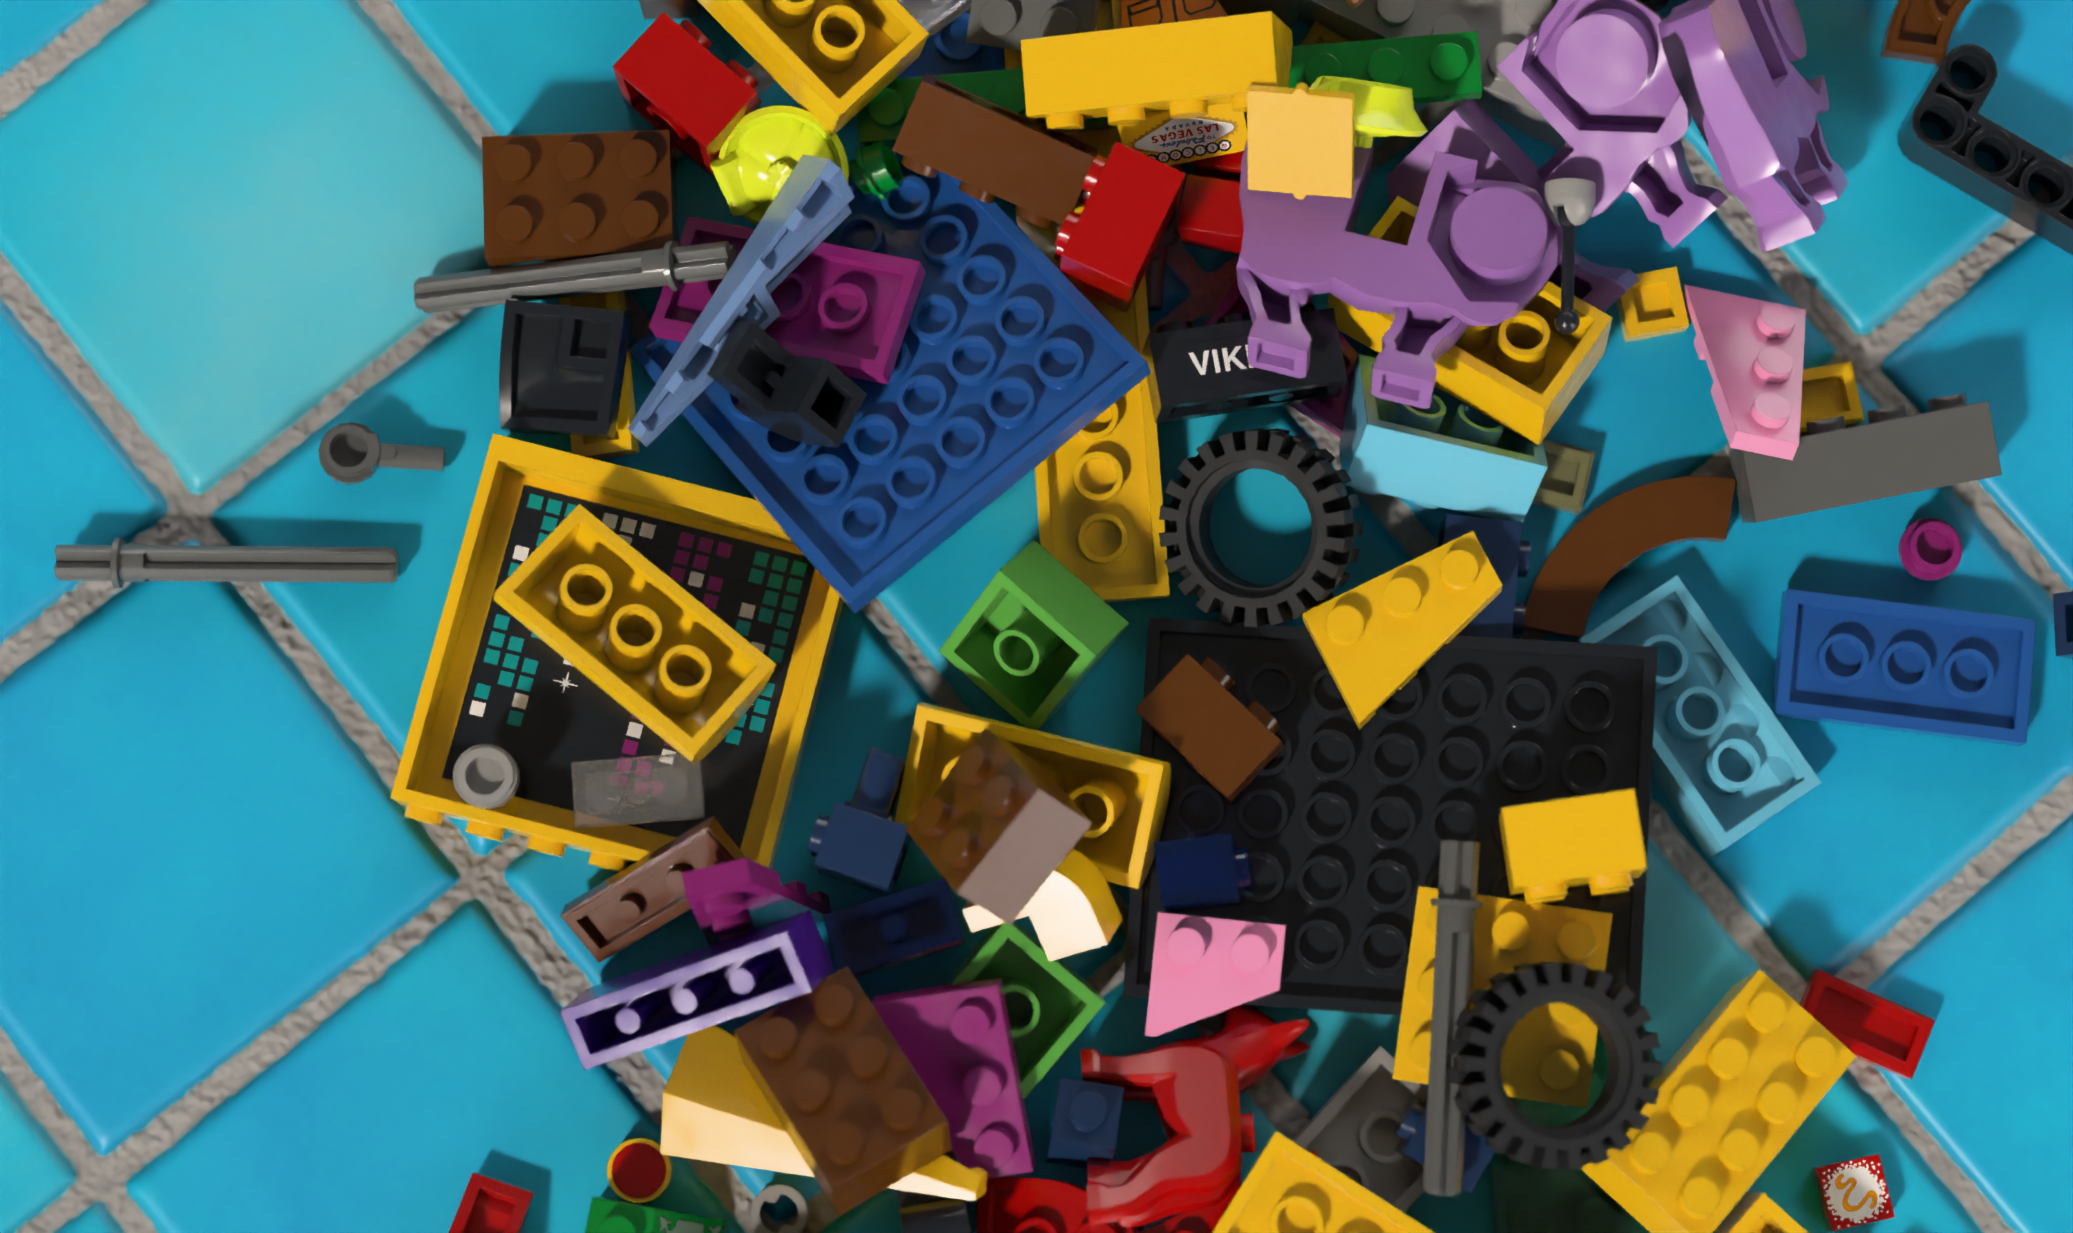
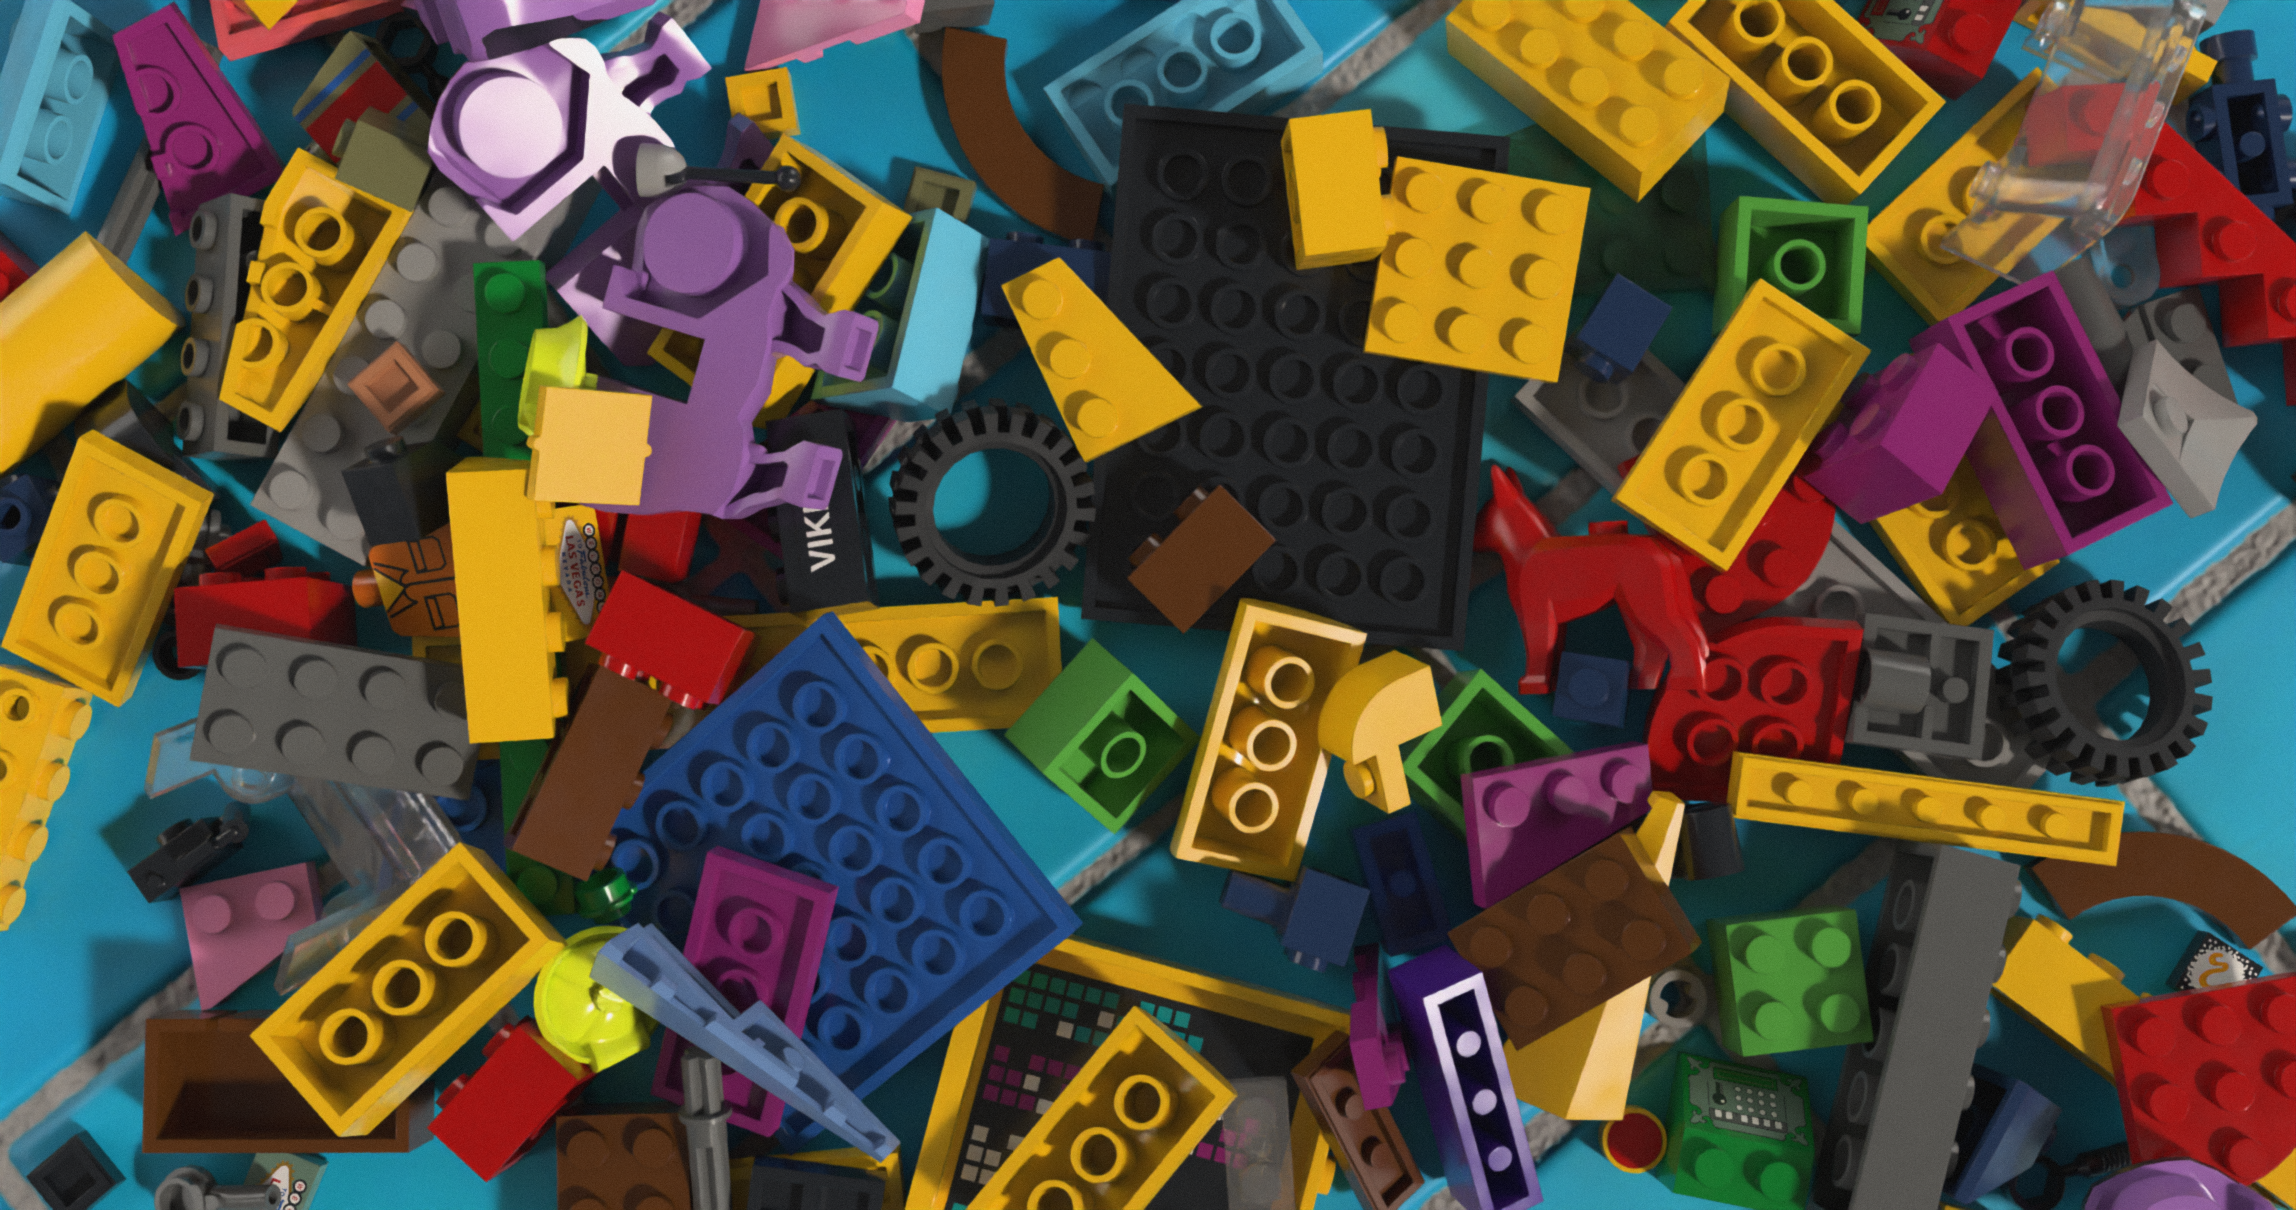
camera: 85 degrees left, 5 degrees up
(786, 393) = (844, 996): black brick -> none
(997, 827) = (1315, 777): reddish brown brick -> none
(1201, 871) = (1347, 569): clear blue brick -> none
(1209, 967) = (1440, 562): bright pink wing -> none
(1451, 995) = (1502, 319): dark grey axle -> none
(1627, 1072) = (1585, 151): black tyre -> none

